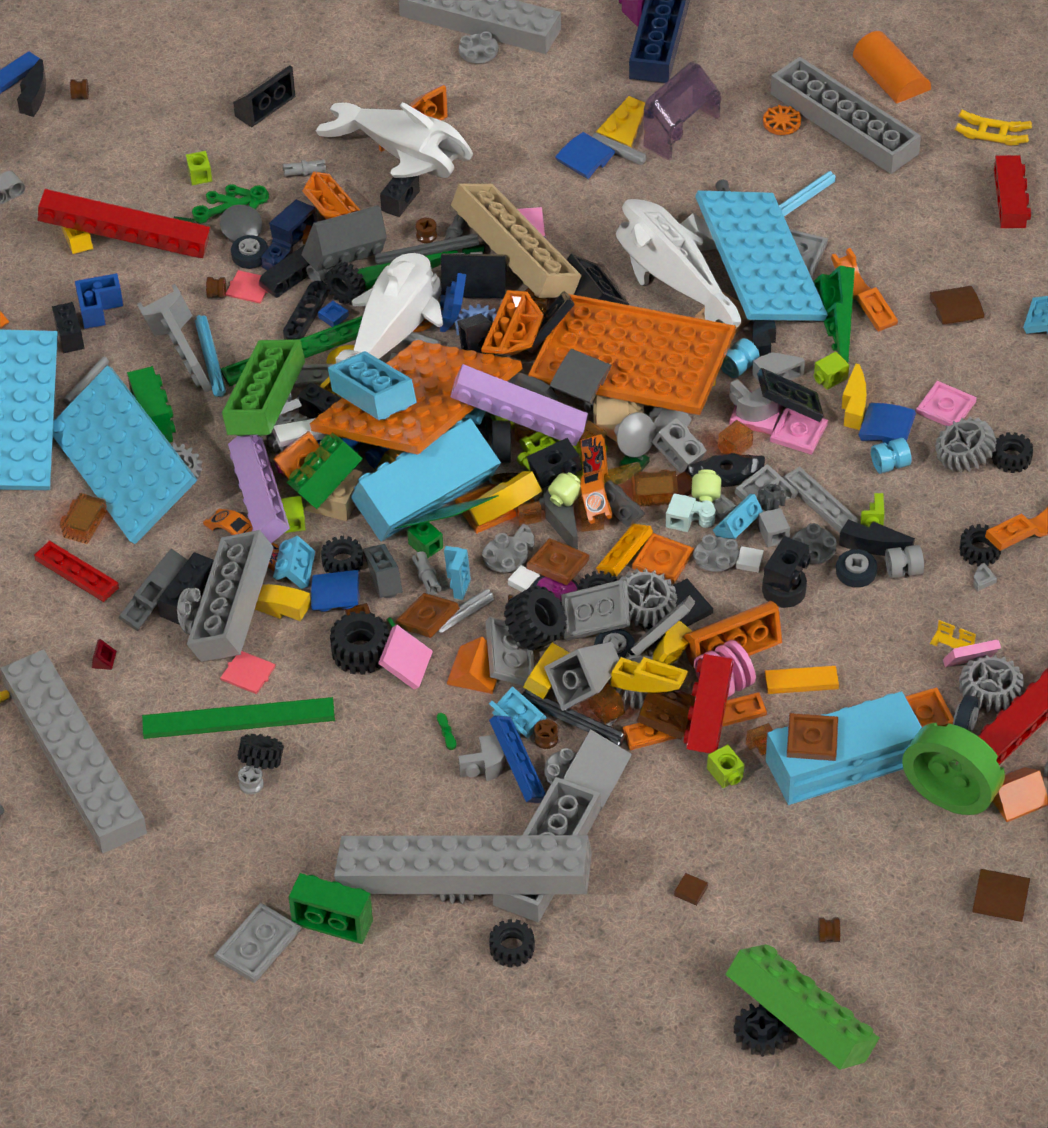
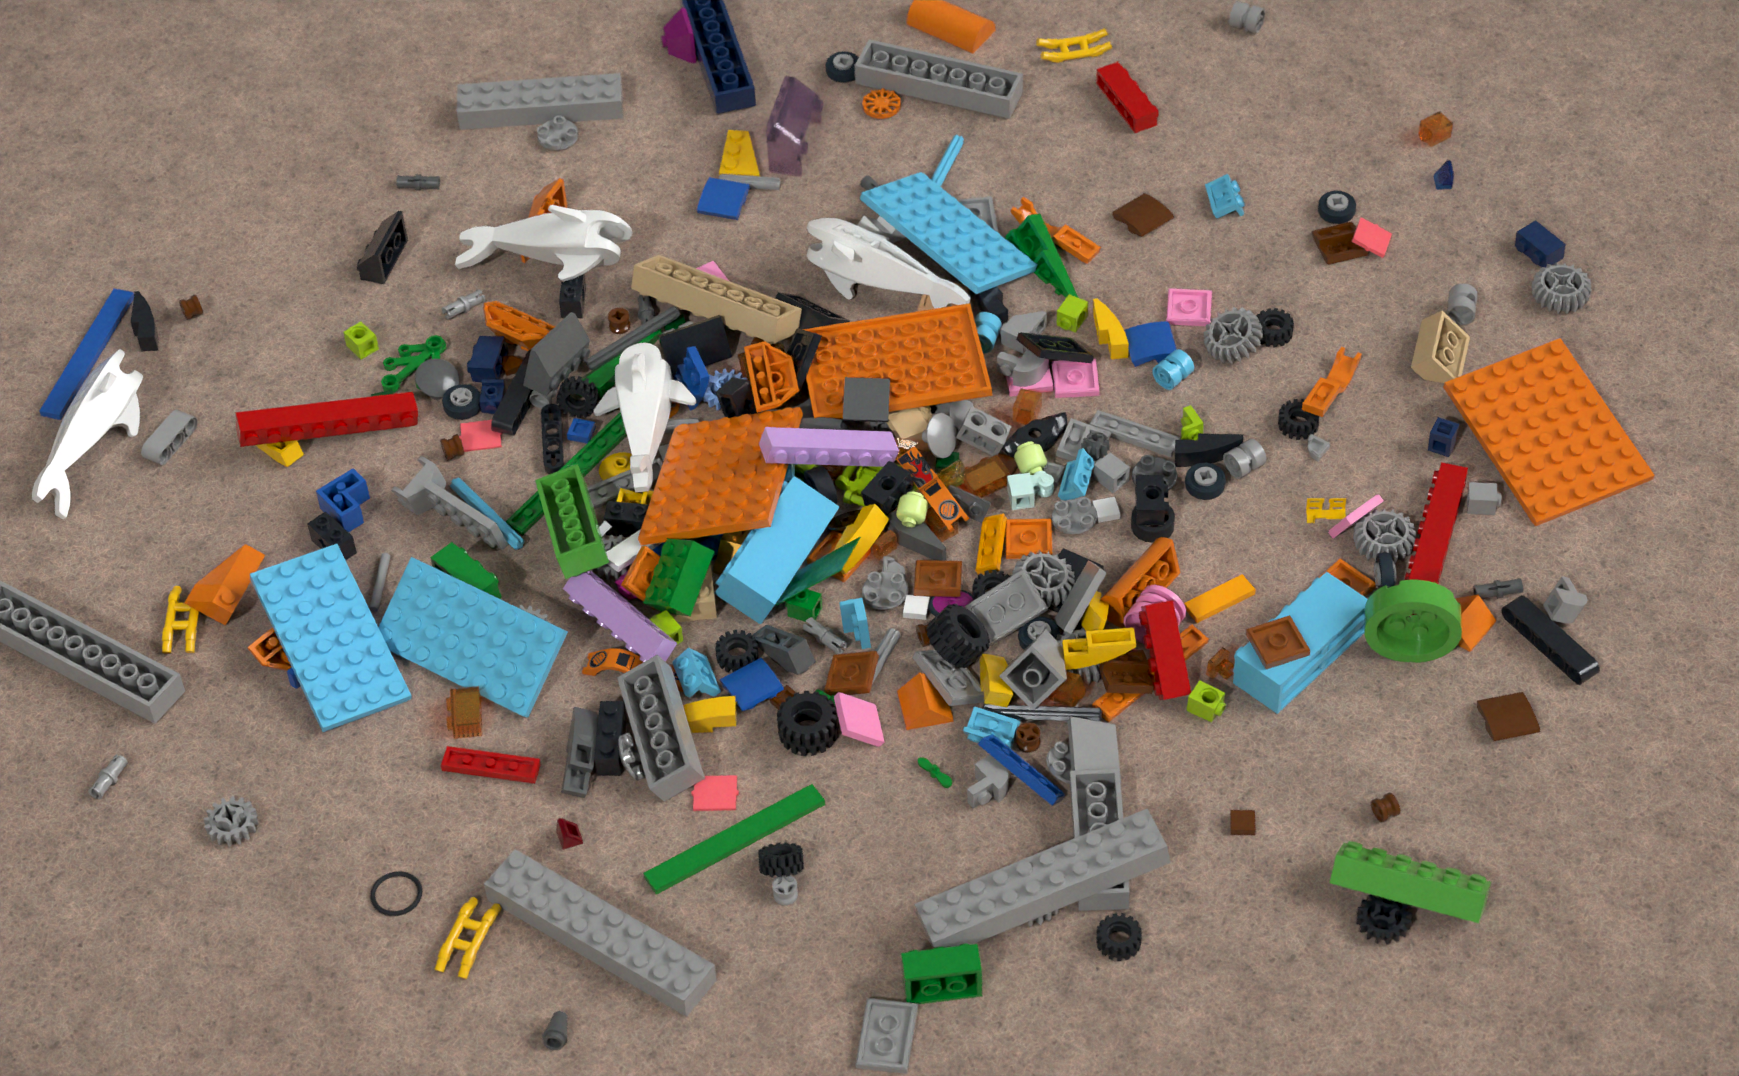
camera: 25 degrees left, 0 degrees up
(334, 48) = (418, 182): none -> dark grey pin
(372, 385) = (682, 479): medium azure brick -> none
(762, 72) = (841, 66): none -> black wheel

